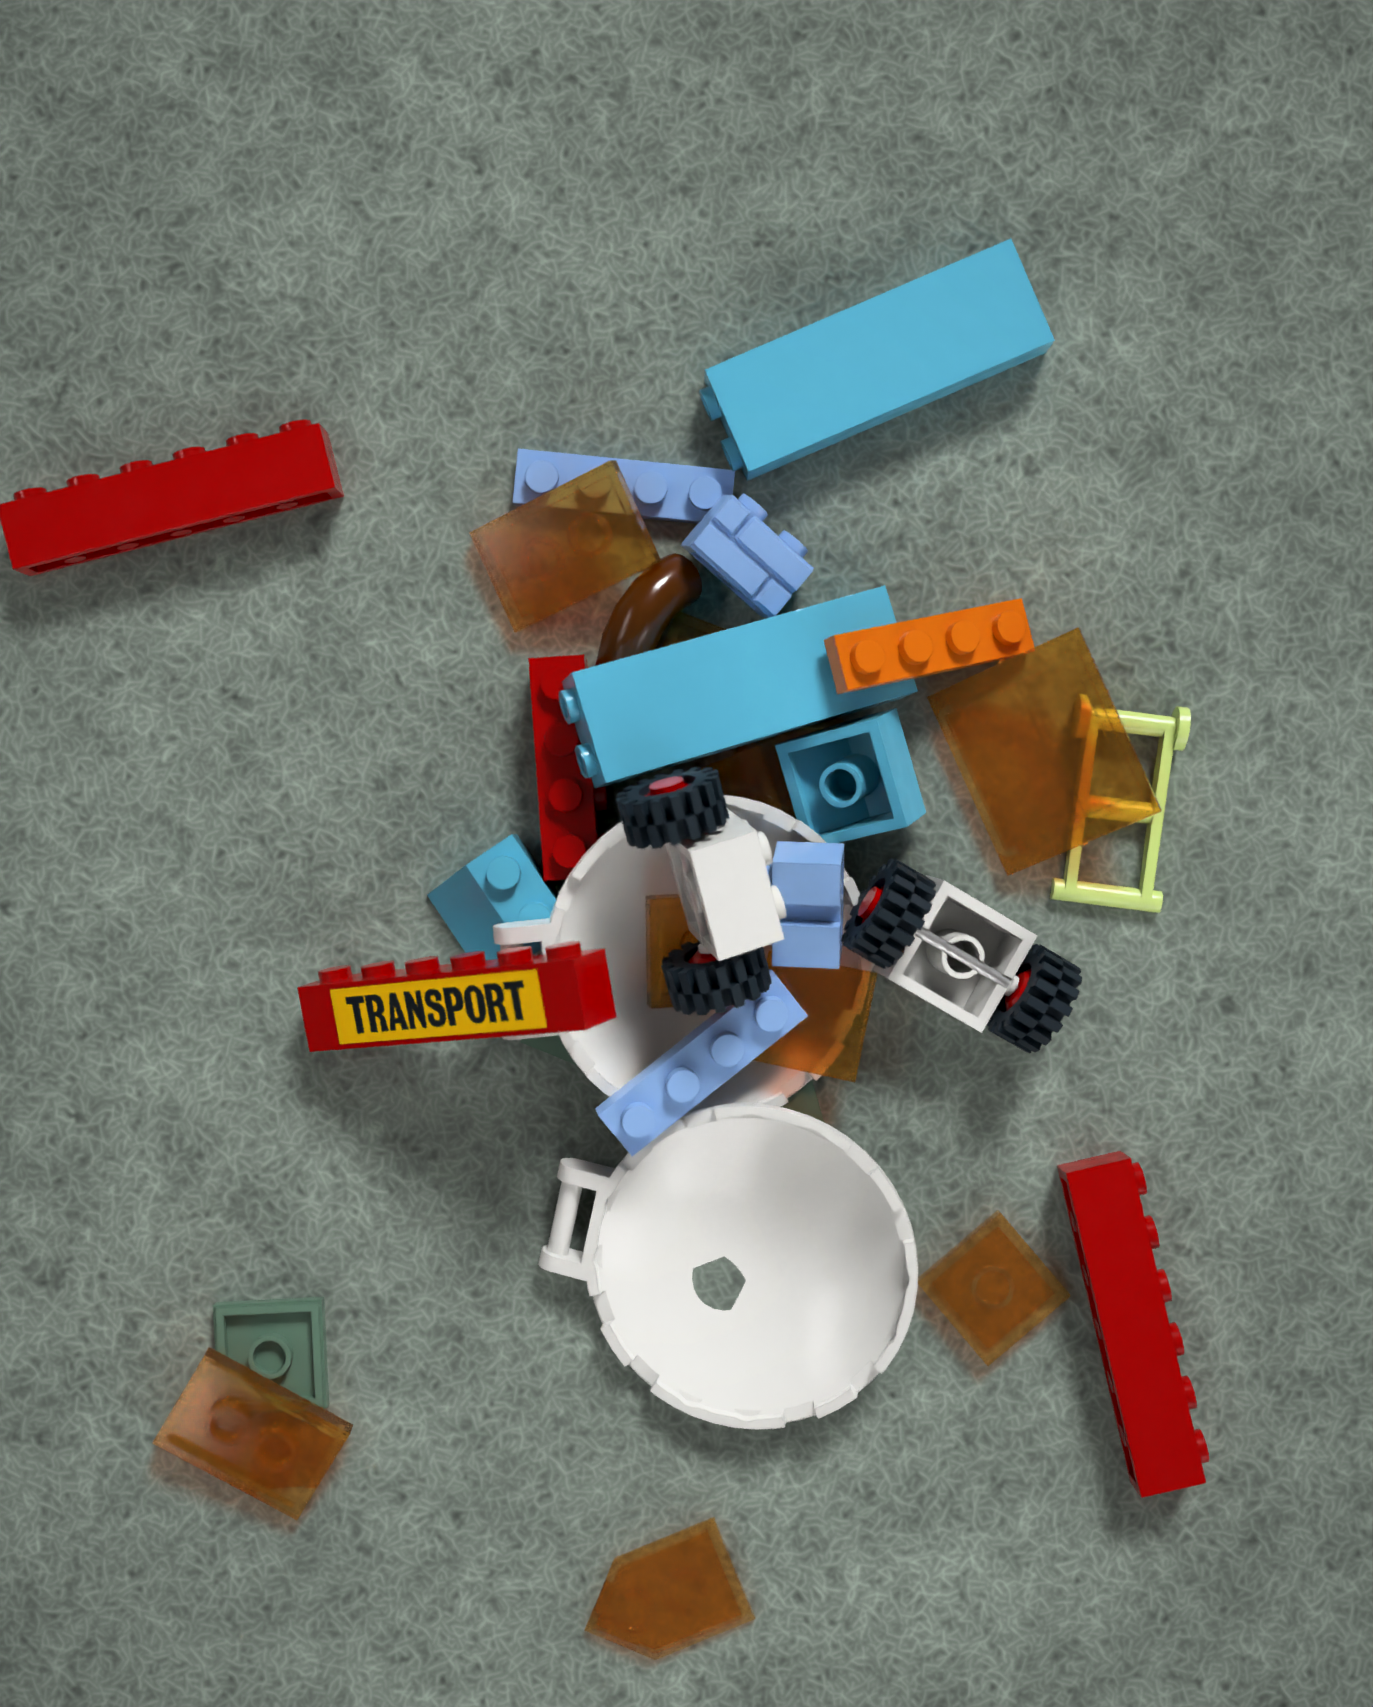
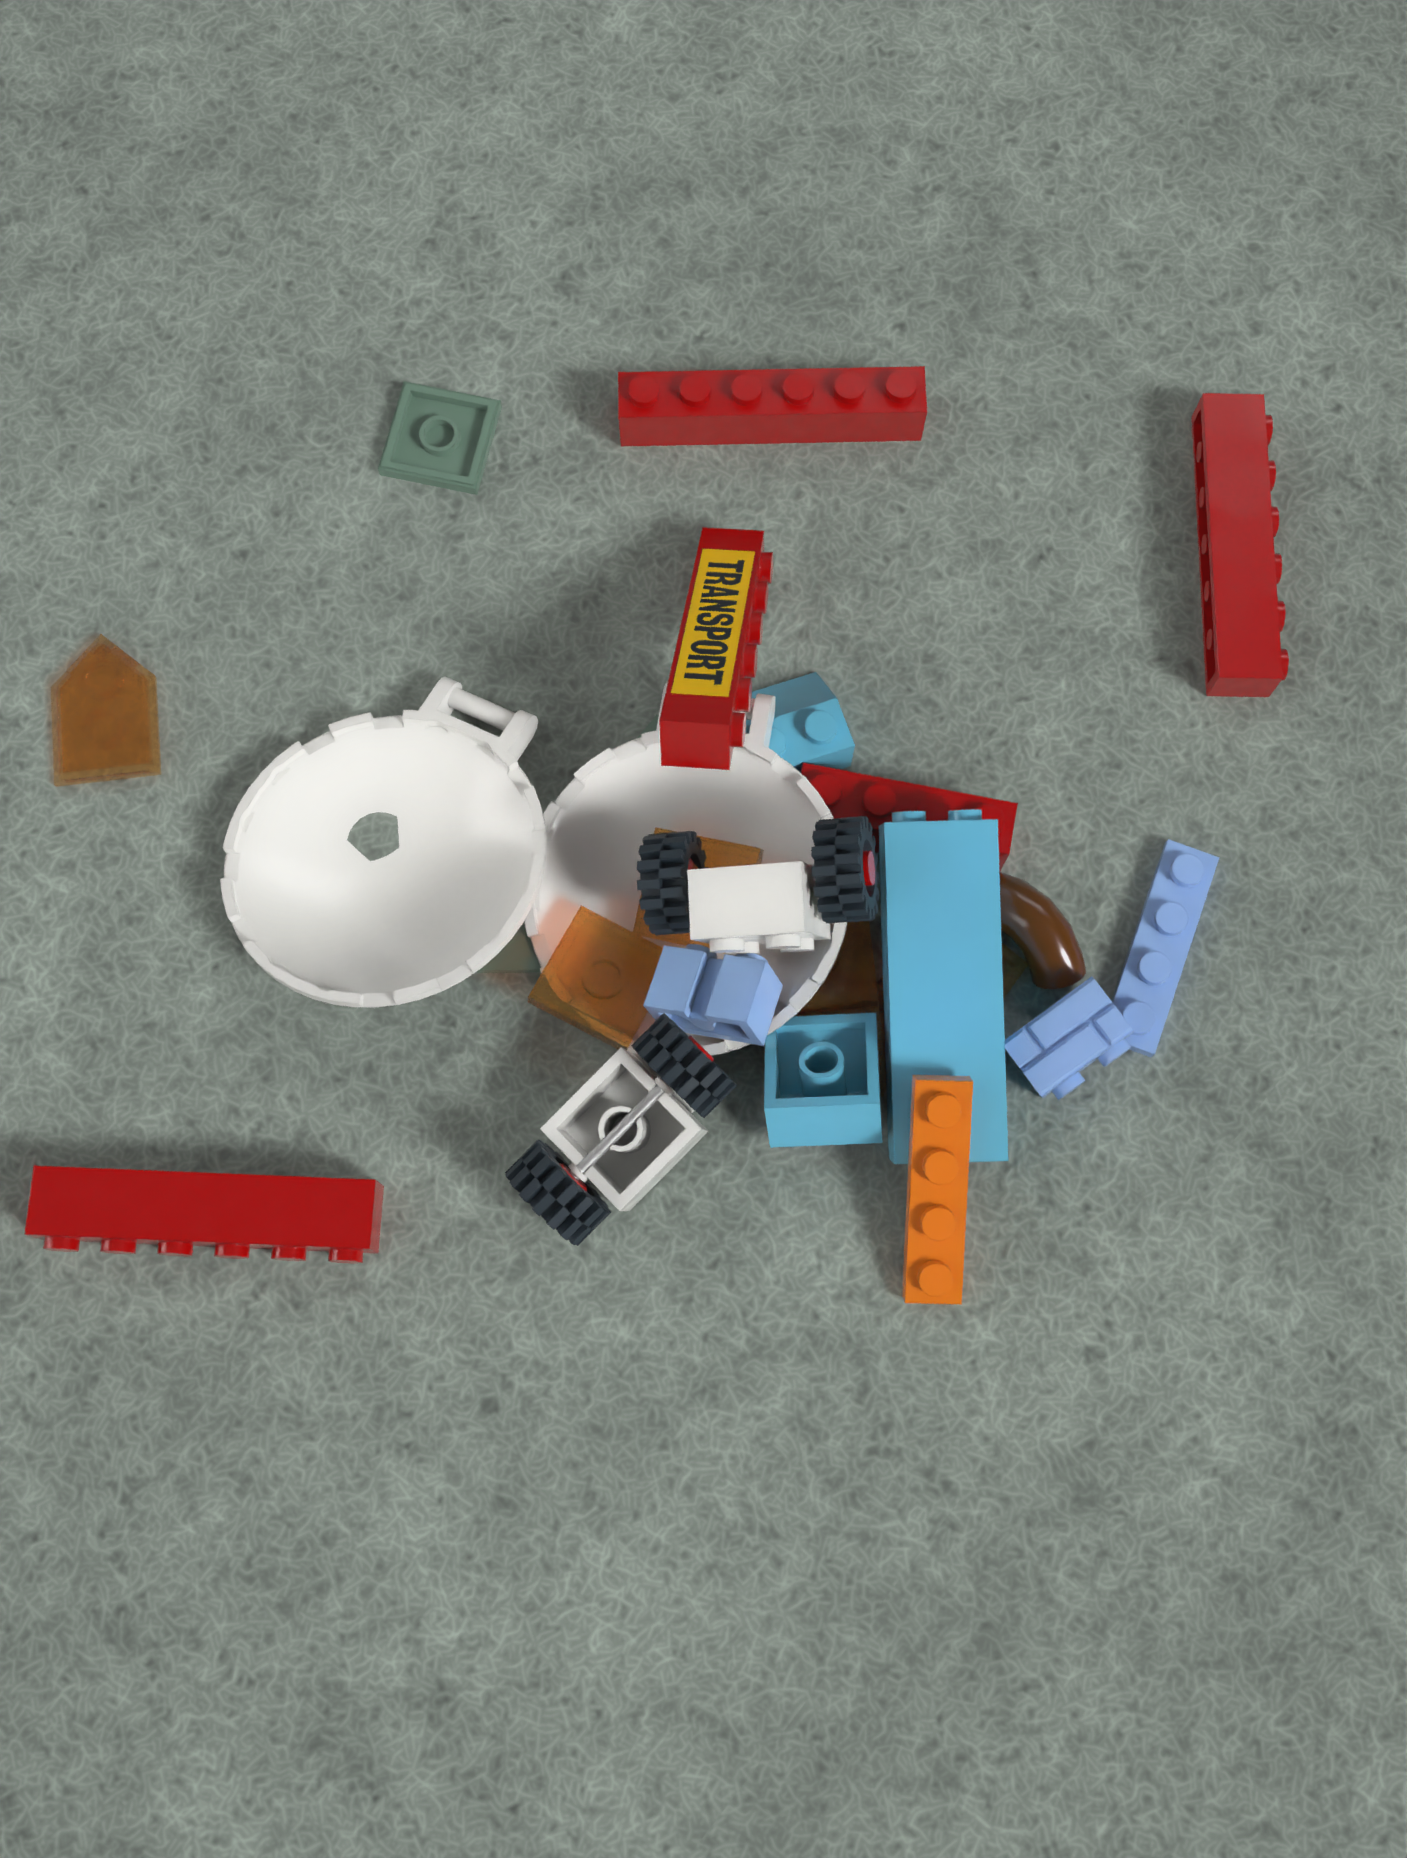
camera: 110 degrees right, 15 degrees down
(146, 1018) = (771, 406): none -> red brick
(253, 1433) = (377, 402): clear orange tile -> none
(565, 546) = (1116, 872): clear orange tile -> none
(698, 1066) = (591, 856): light blue plate -> none
(876, 360) = (1236, 1222): medium azure brick -> none
(993, 1288) = (285, 1088): clear orange tile -> none
(1044, 752) = (800, 1278): clear orange piece -> none
(1172, 735) = (815, 1333): yellowish green piece -> none

